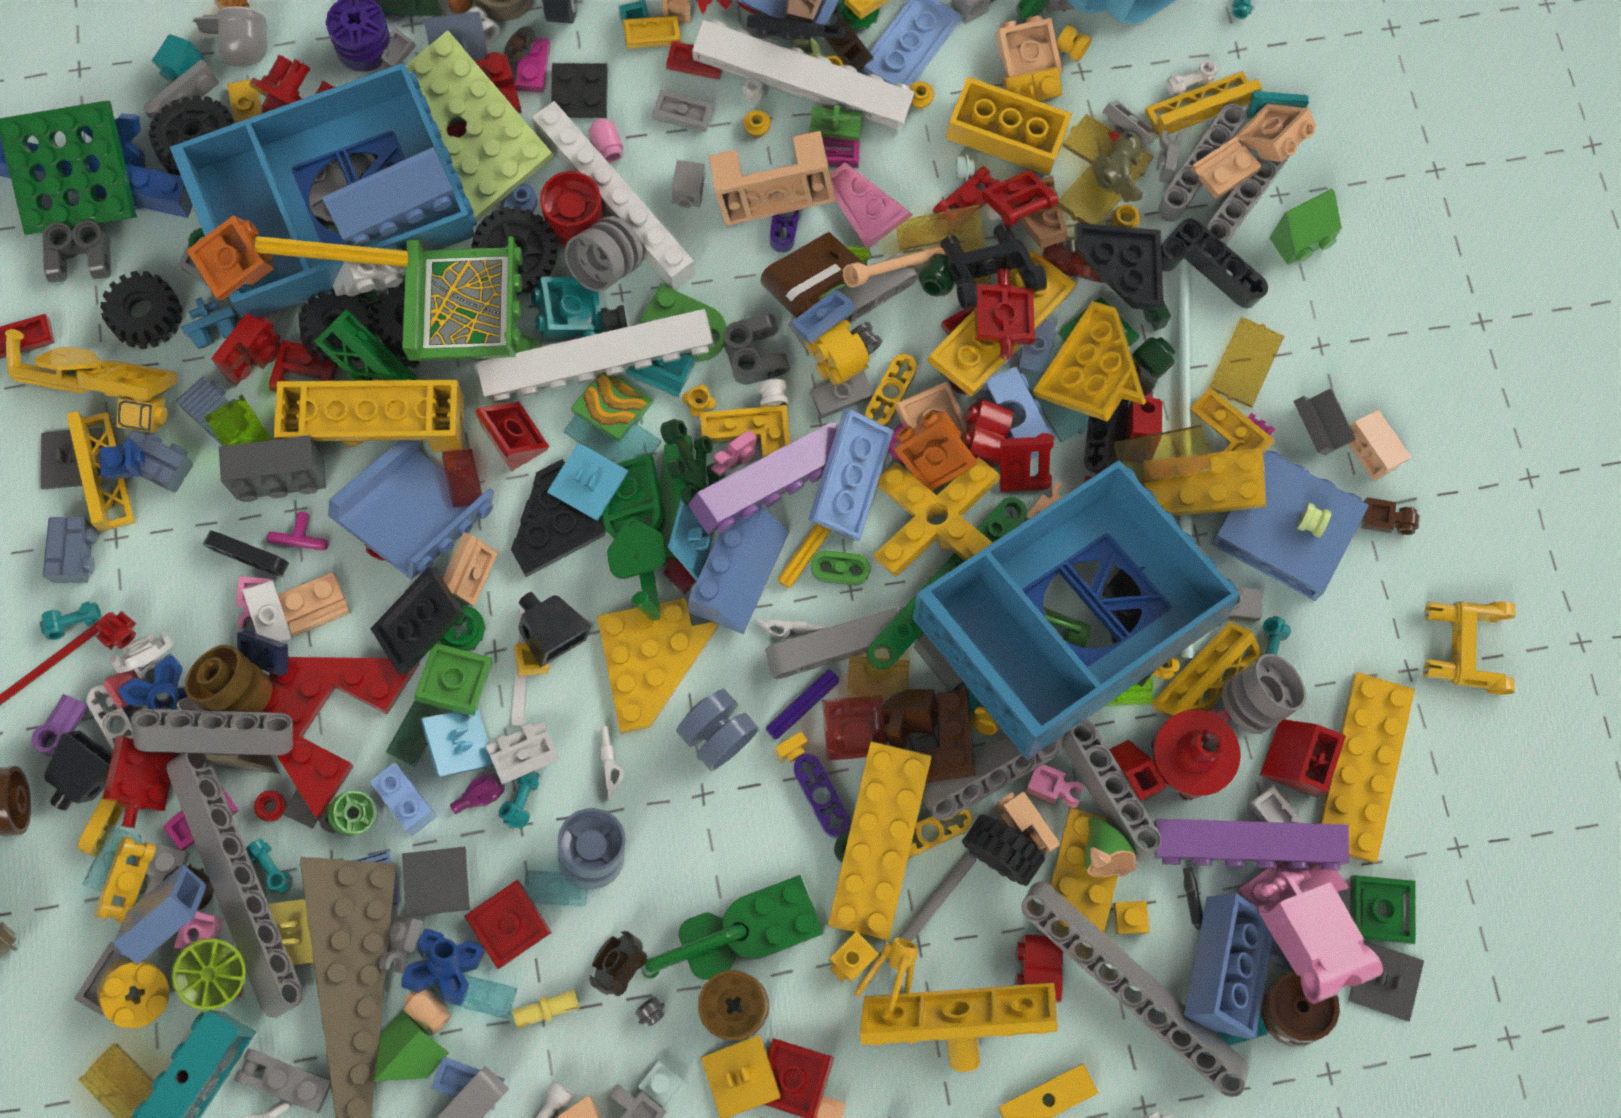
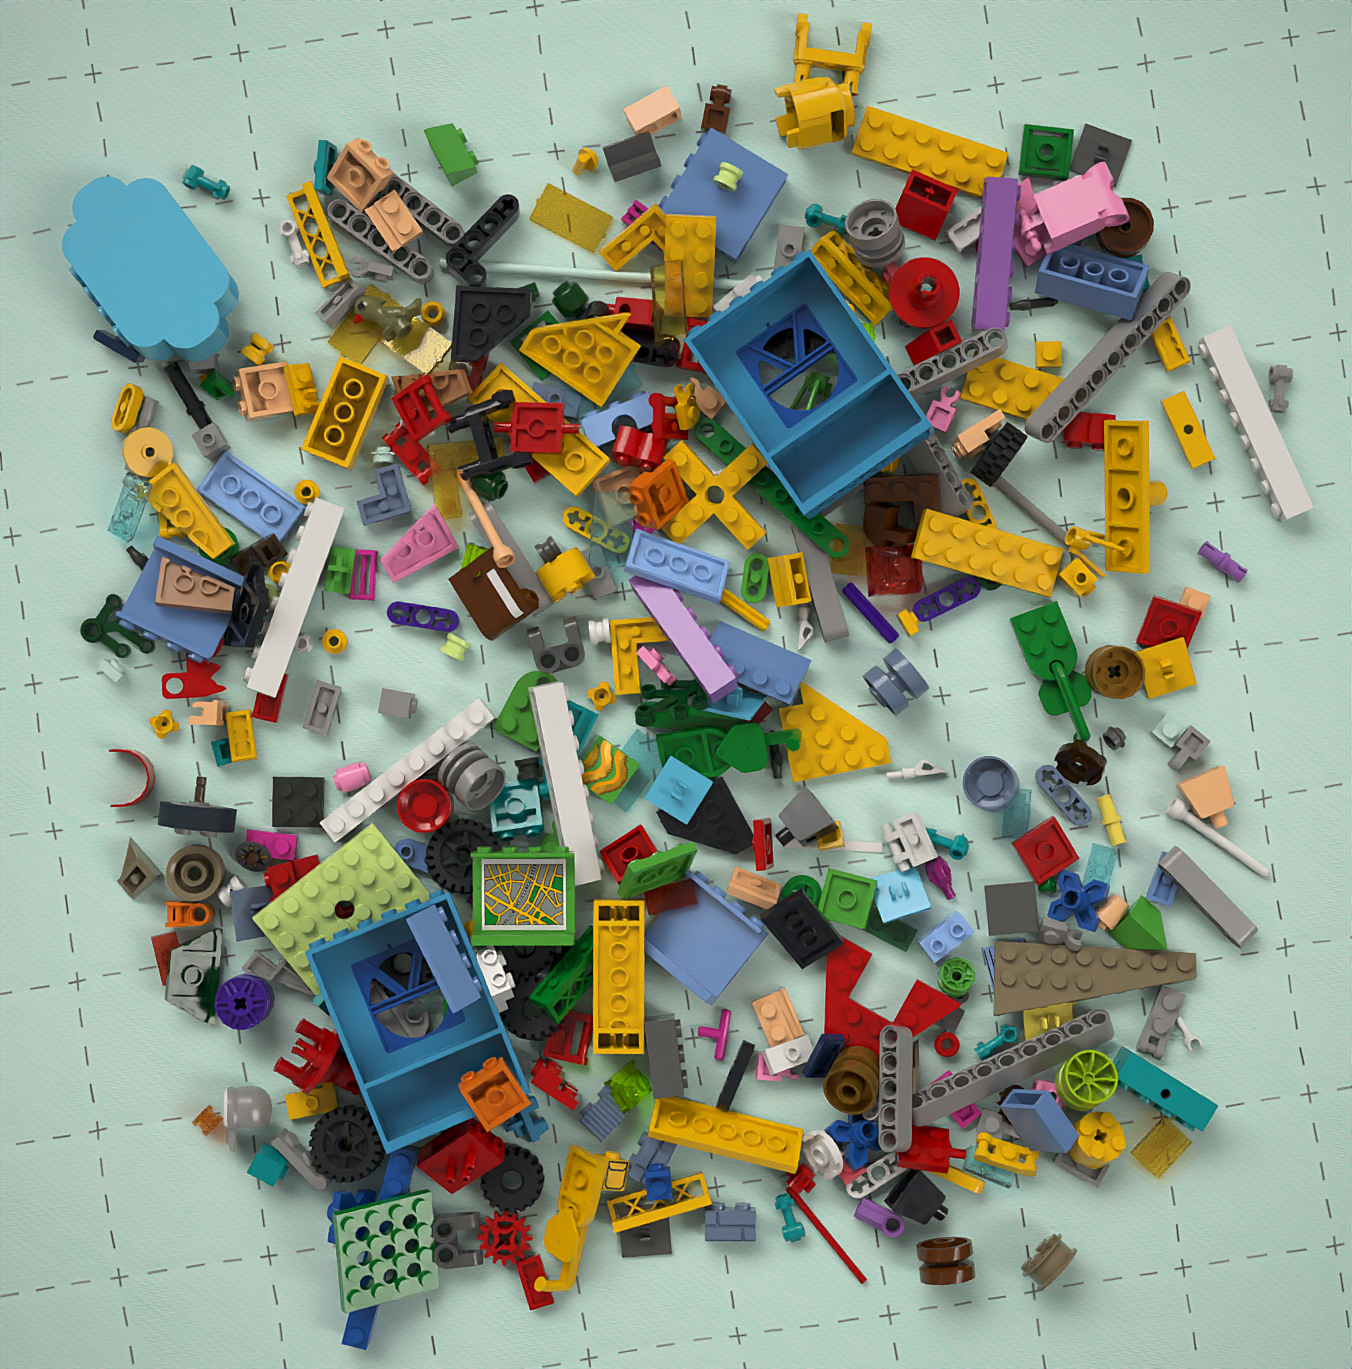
camera: 80 degrees left, 15 degrees up
(66, 314) = (512, 1245): none -> red gear
(163, 244) = (461, 1155): none -> red piece
(174, 542) = (726, 1133): none -> yellow plate
(330, 251) = (490, 1007): yellow axle -> none
(463, 931) = (1048, 886): none -> green piece
(491, 451) = (657, 870): none -> bright green plate
(521, 576) = (763, 844): none -> red plate
(565, 944) = (1073, 794): none -> sand blue beam
(620, 596) = (776, 760): none -> piece
(752, 243) = (455, 647): none -> yellowish green wheel
(798, 185) = (419, 658): light nougat plate -> none
(823, 316) = (539, 585): medium blue plate -> none
(839, 603) = (789, 579): none -> yellow brick
(893, 399) = (611, 529): none -> clear light blue piece
(917, 178) = (392, 498): none -> sand blue plate
(1037, 485) = (686, 409): none -> yellow plate
(1107, 851) = (999, 371): hat -> none
(1154, 1073) = (1169, 346): none -> yellow plate
(1313, 372) = (587, 160): none -> yellow plate
(1401, 622) = (815, 112): none -> yellow piece

